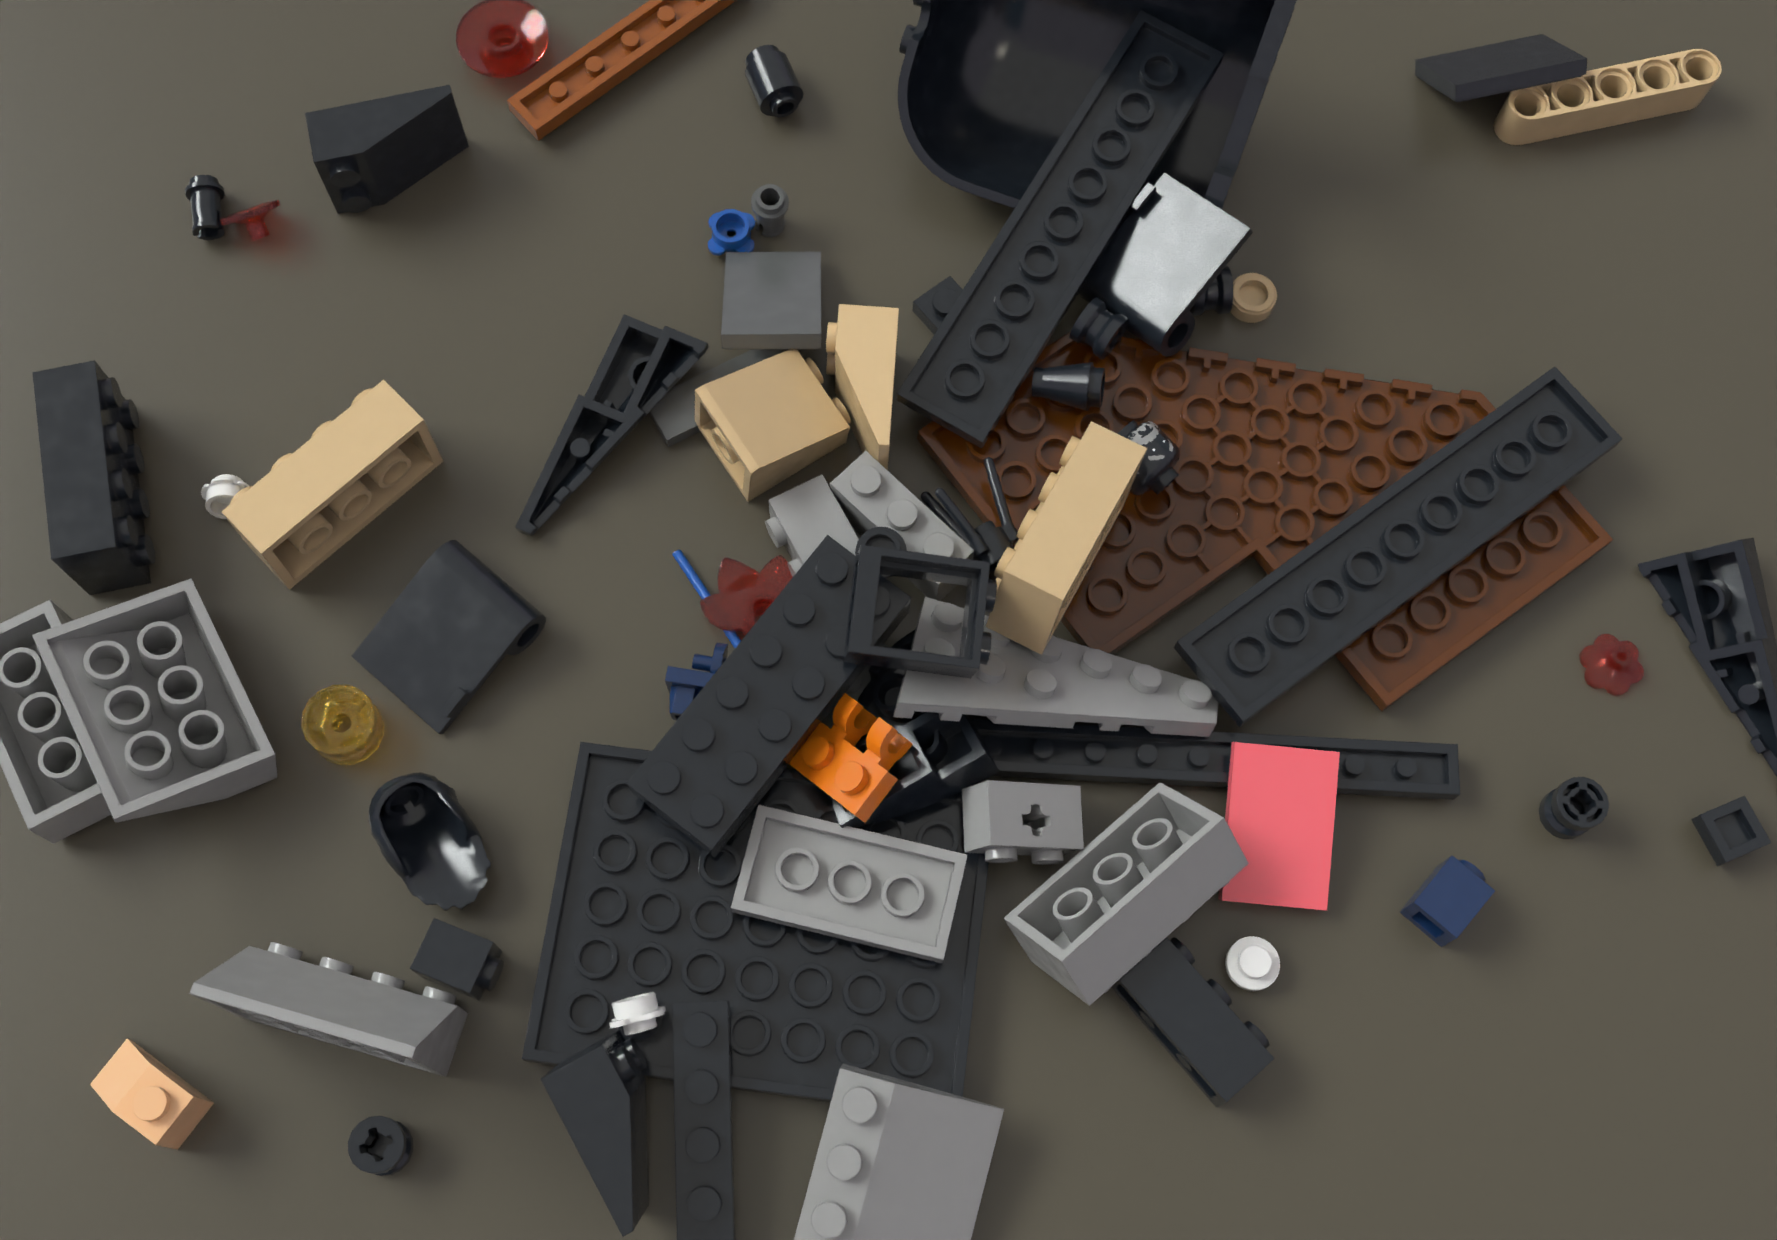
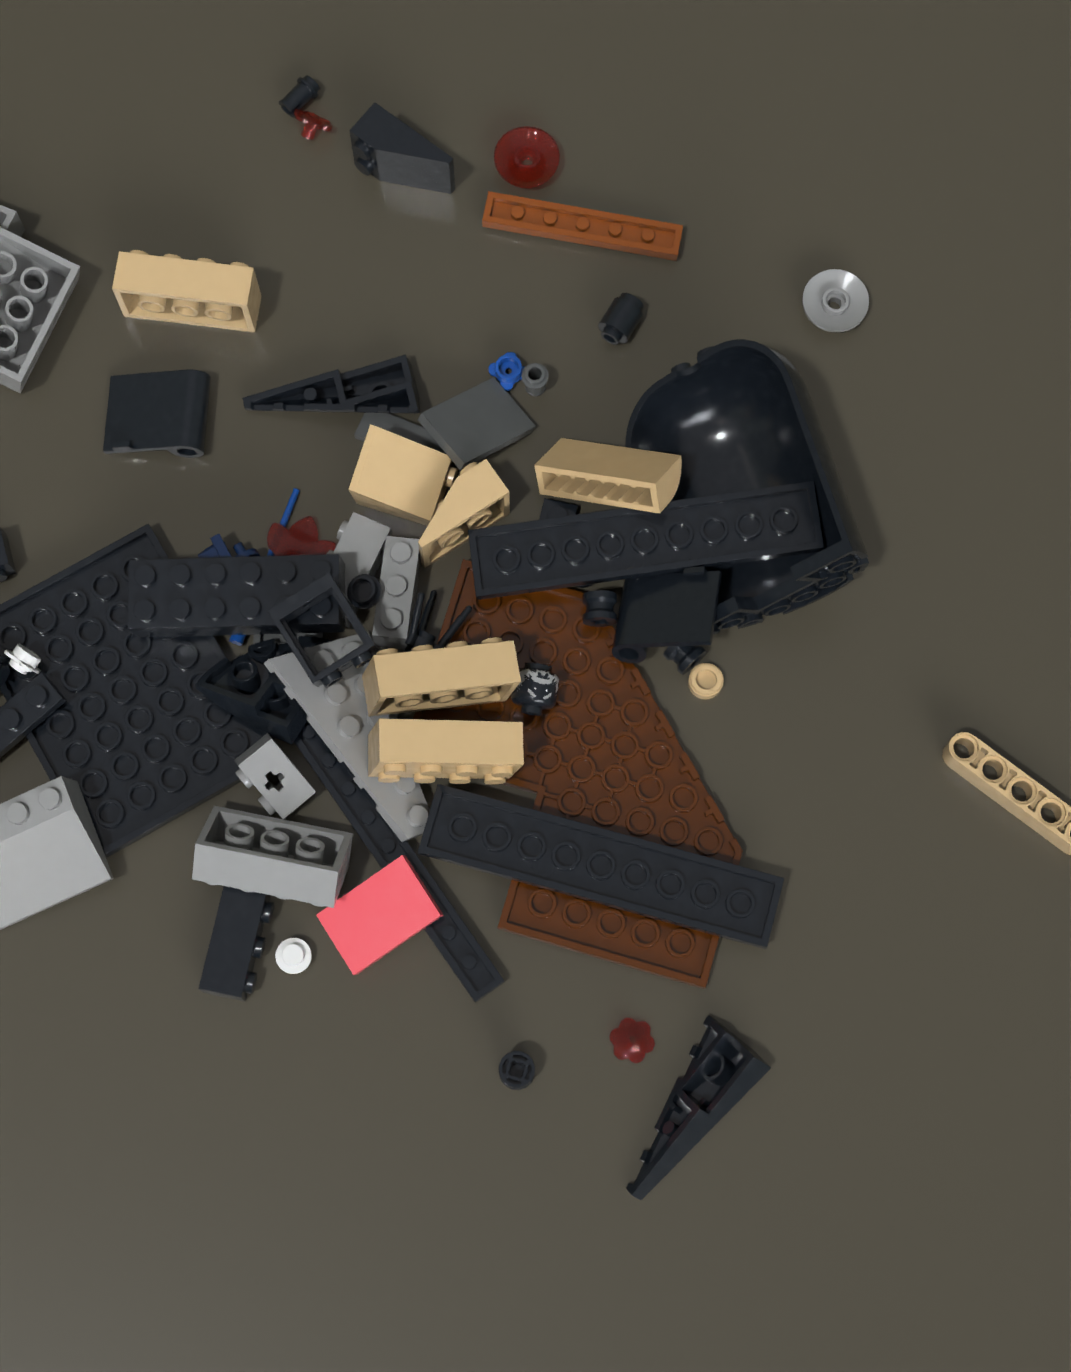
camera: 55 degrees right, 5 degrees up
(92, 478) = (98, 174): black brick -> none
(220, 493) = (147, 242): white plate -> none
(325, 714) = (71, 389): clear yellow wheel -> none
(429, 840) = (39, 491): black hair -> none
(844, 772) = (234, 662): orange plate -> none
(849, 883) = (171, 713): light grey plate -> none
(955, 207) = (609, 475): none -> tan brick
(1071, 385) = (553, 620): black cone -> none
(1158, 596) = (445, 750): none -> tan brick
(1448, 900) = (408, 1035): dark blue brick -> none
(1500, 67) = (980, 715): black tile -> none
(1731, 831) = (573, 1169): black plate -> none

